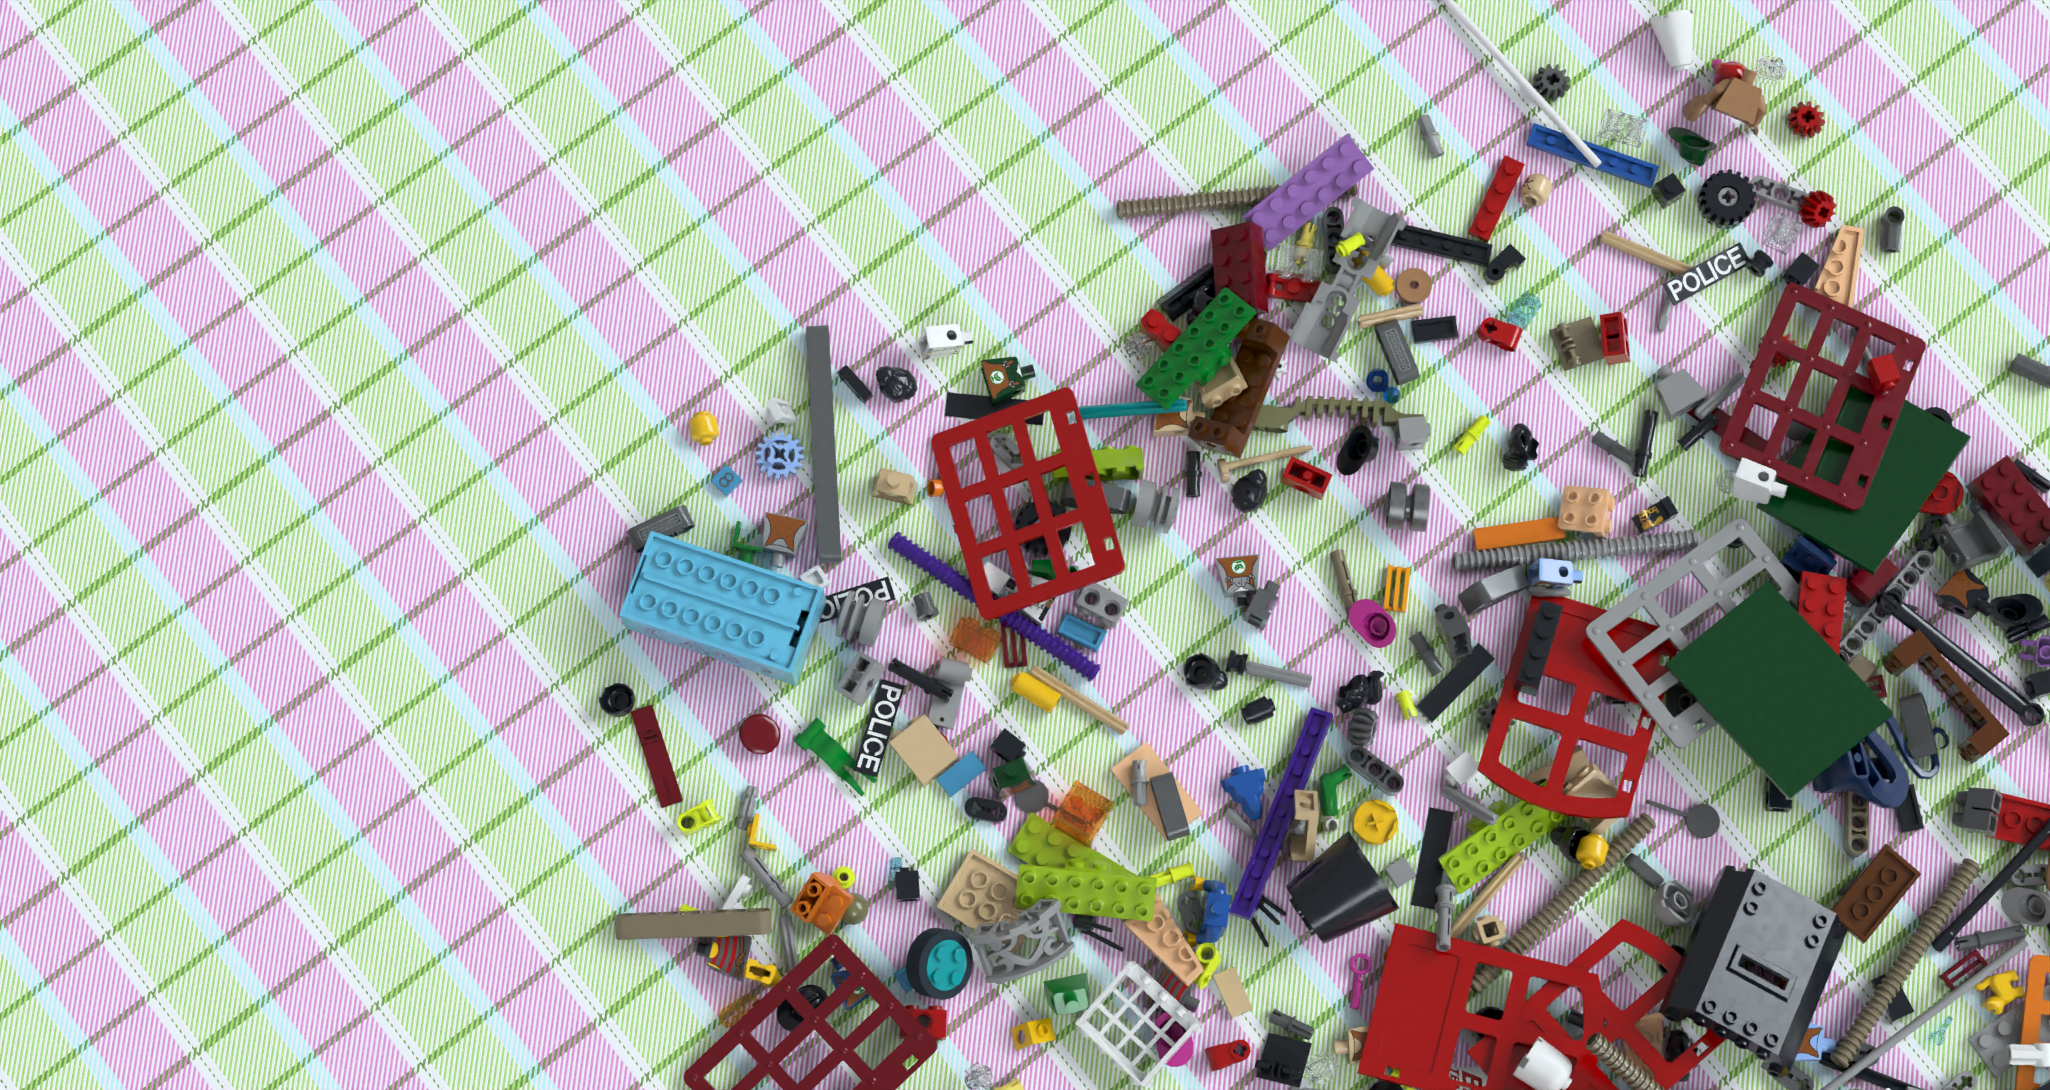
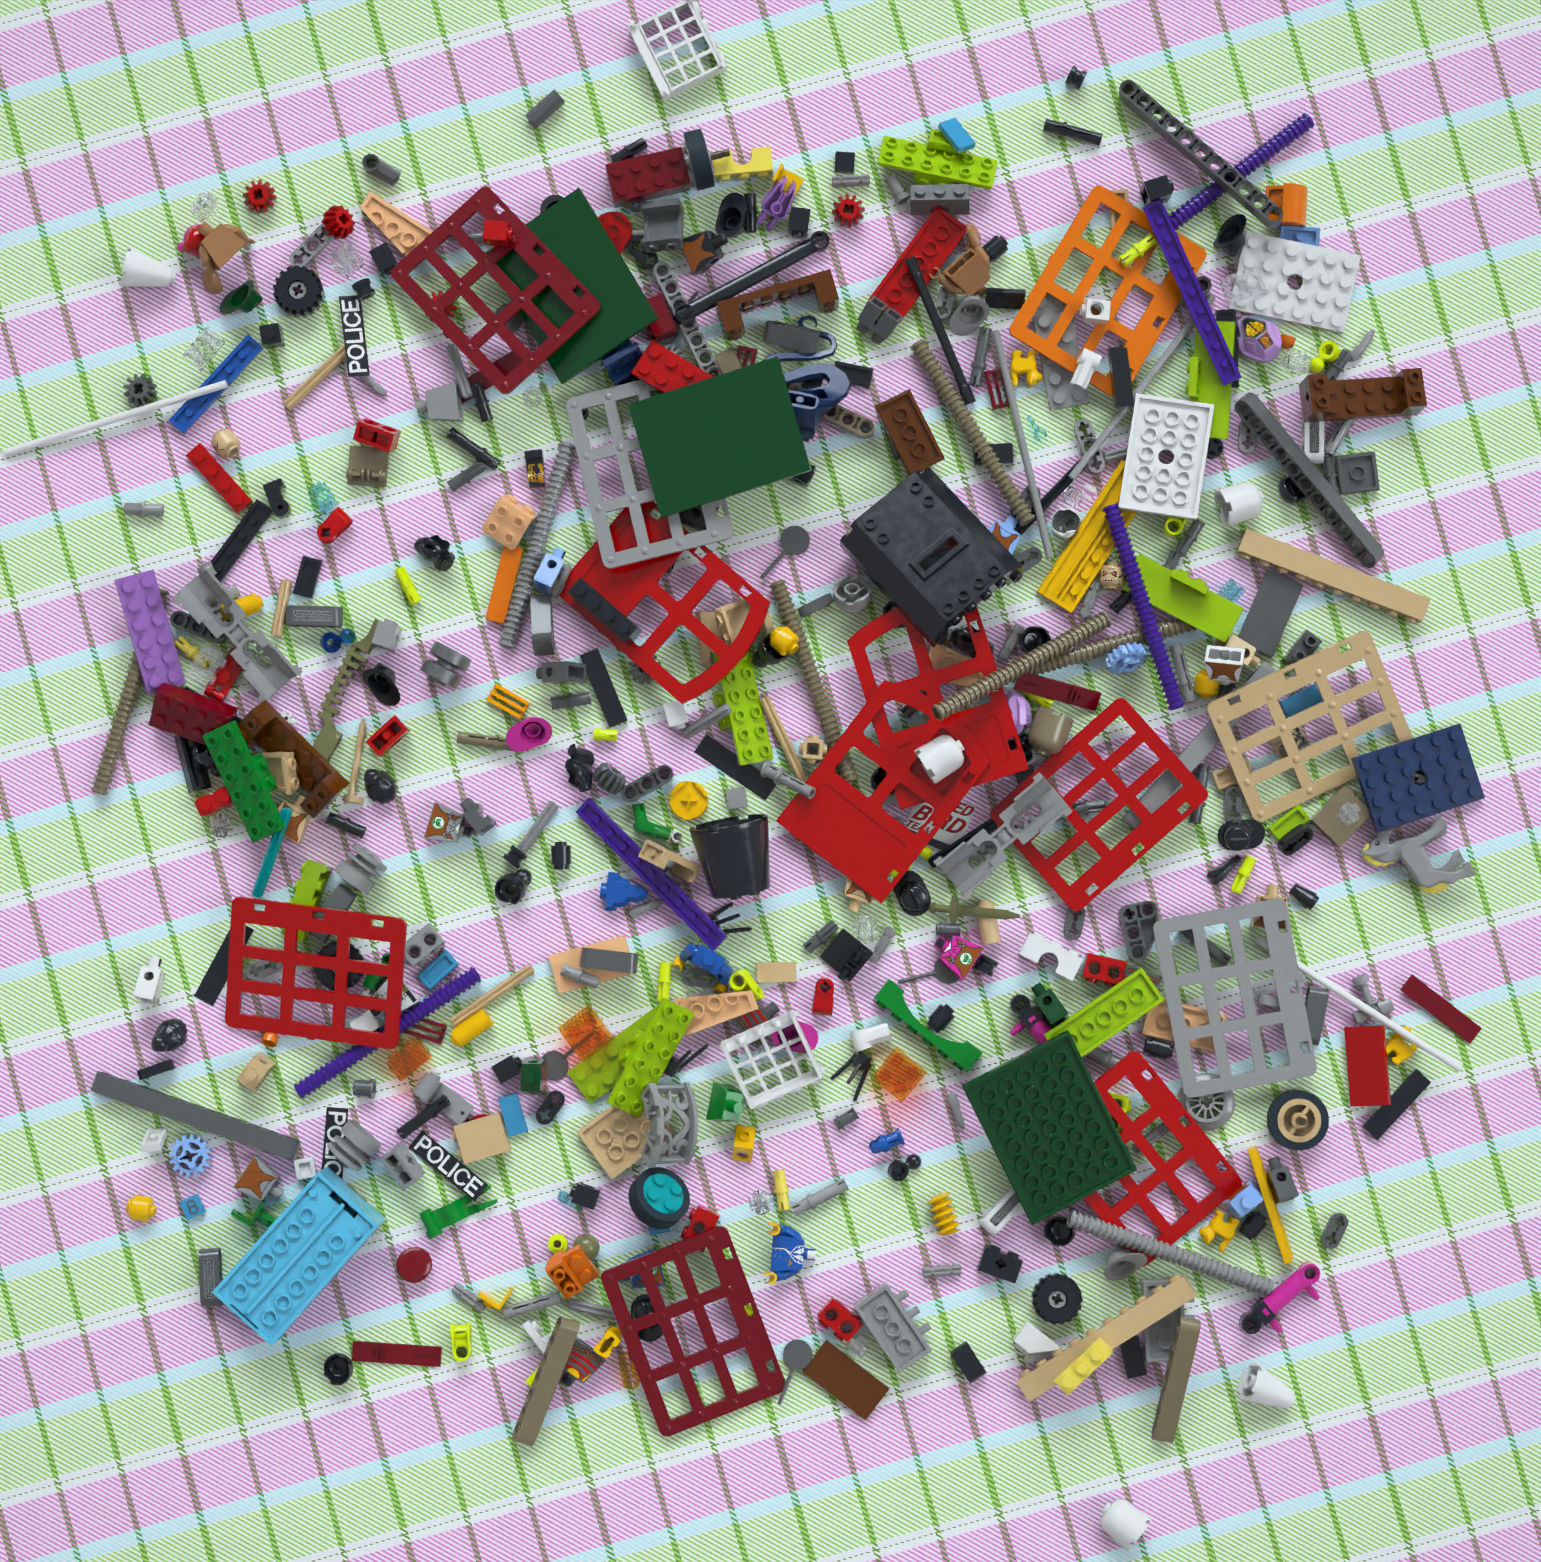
camera: 60 degrees left, 10 degrees up
(1005, 378) = (202, 944): torso -> none
(1345, 247) = (210, 619): neon yellow pin -> none
(1357, 985) = (812, 871): dark pink piece -> none
(1416, 276) = (258, 571): medium nougat piece -> none
(1756, 482) = (544, 376): white torso -> none

